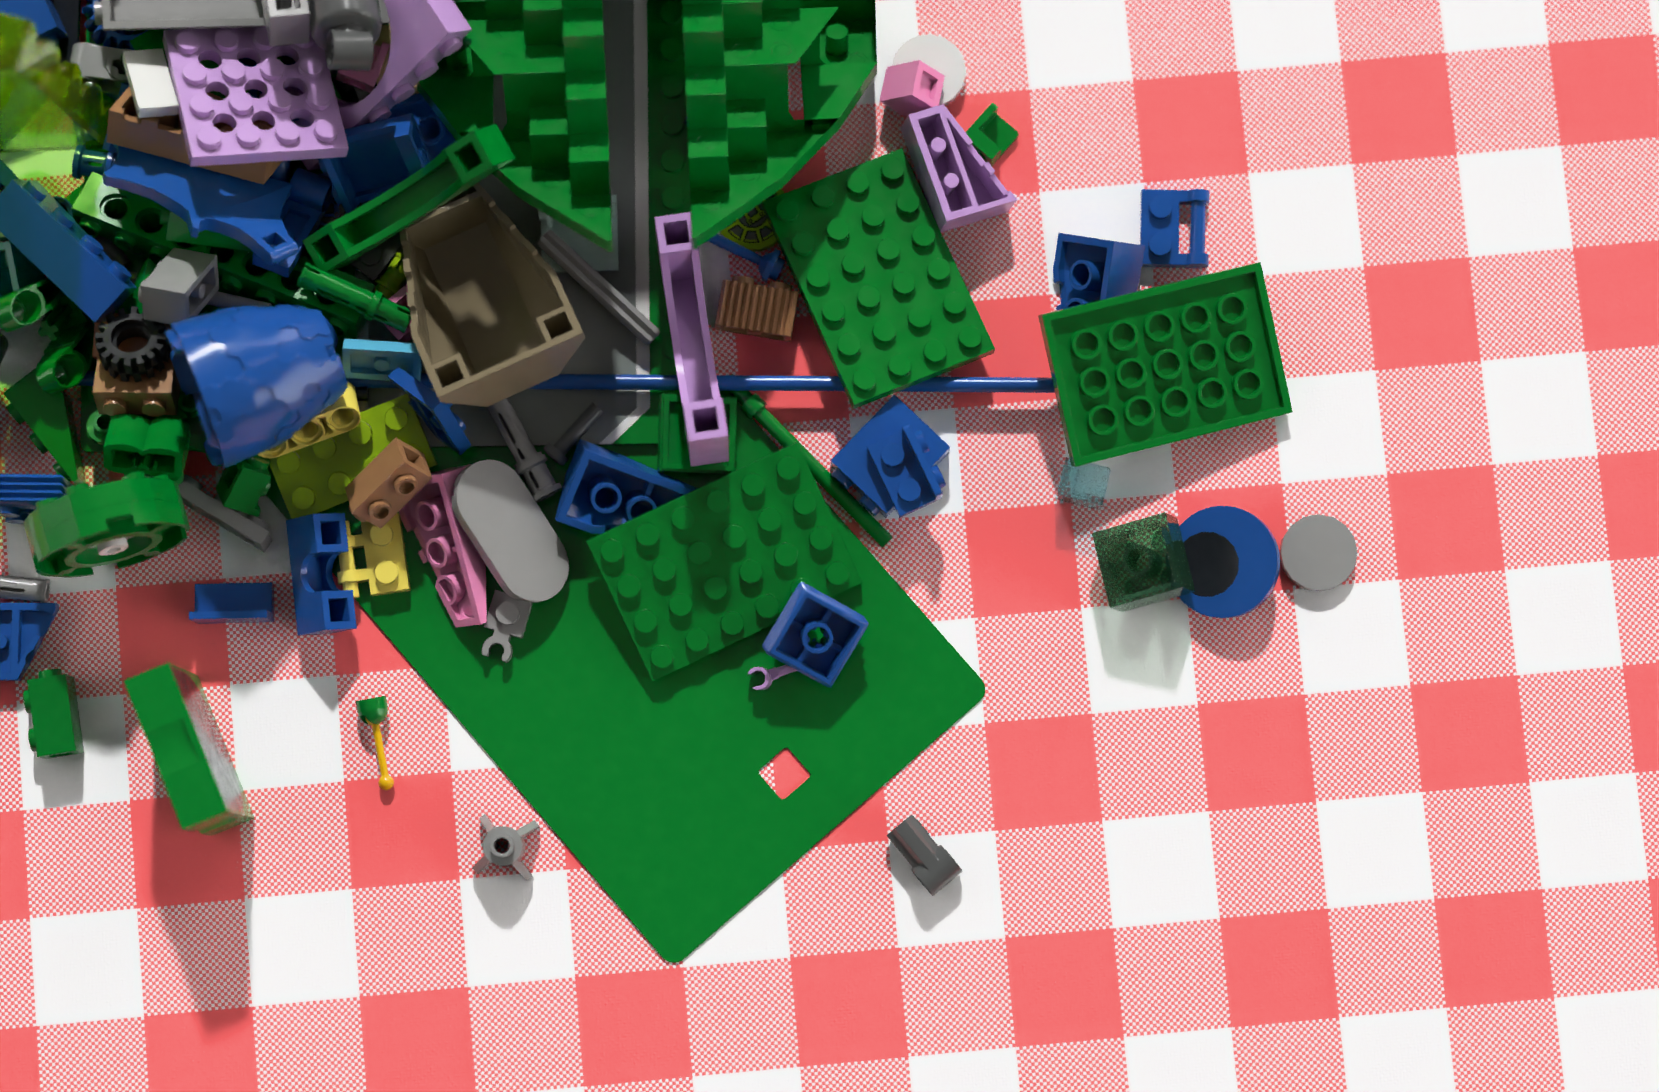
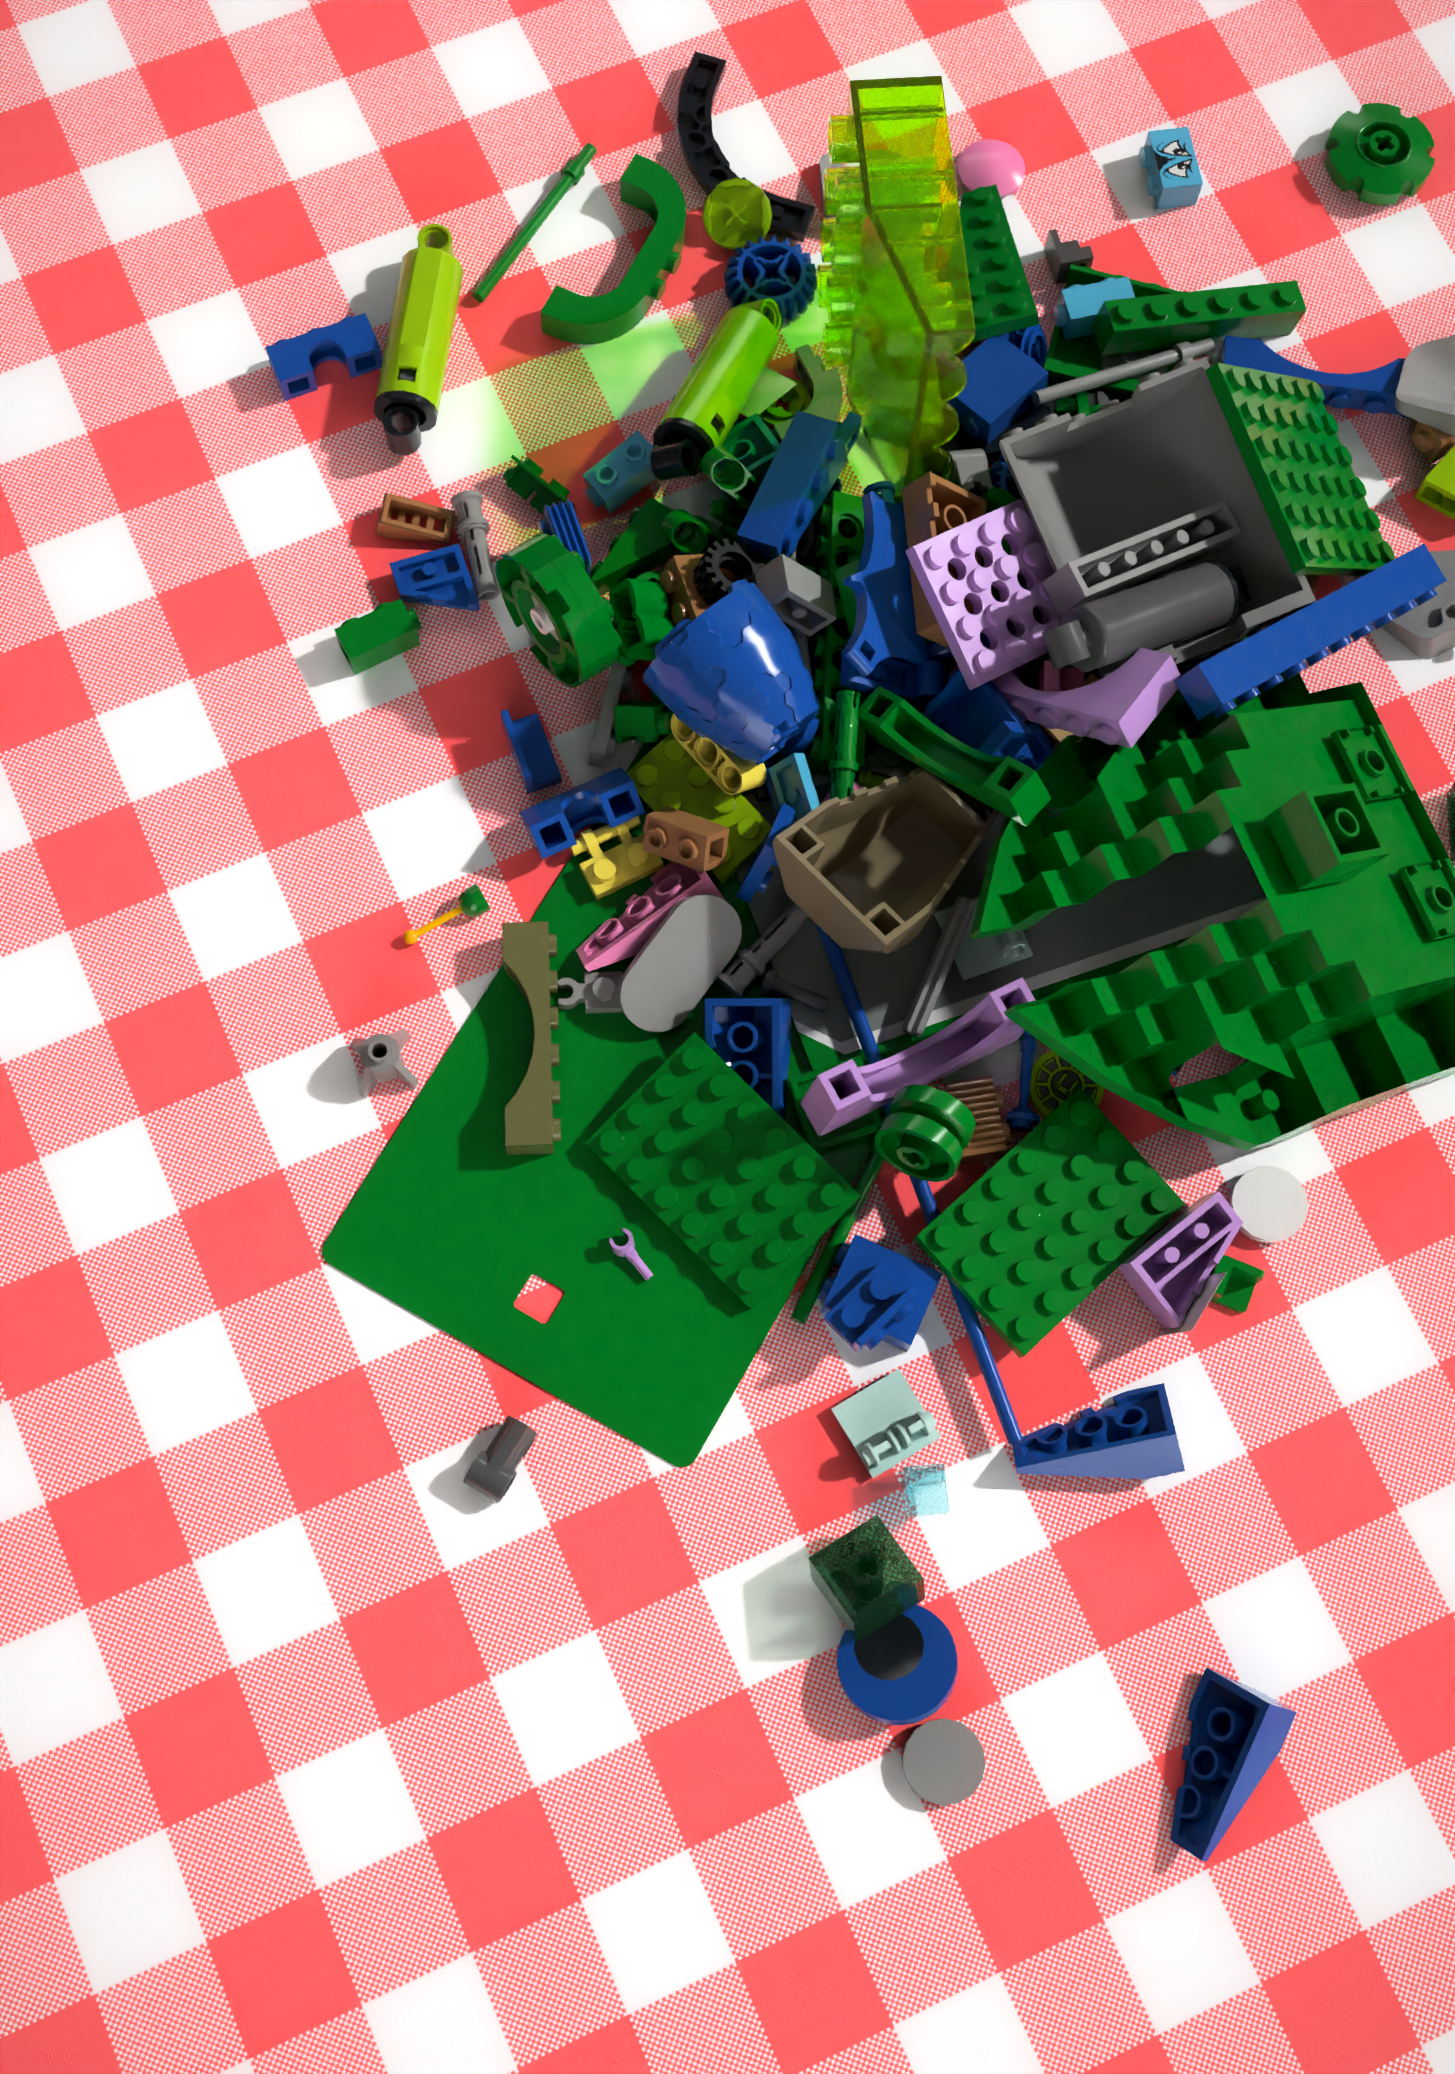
camera: 65 degrees right, 10 degrees down
(150, 83) = (968, 501): white tile -> none
(189, 749) = (376, 743): green tile -> none
(454, 676) = (530, 1111): none -> olive arch
(763, 361) = (925, 1133): none -> green wheel
(822, 657) = (660, 1292): blue brick -> none
(911, 87) = (1247, 1190): bright pink panel -> none
(1004, 174) = (1198, 1305): none -> white sticker
(1008, 495) = (886, 1423): none -> light aqua hinge
(1161, 228) = (1210, 1484): blue plate -> none
(1165, 364) = (1075, 1532): green plate -> none
(1391, 301) = (1229, 1751): none -> blue wedge

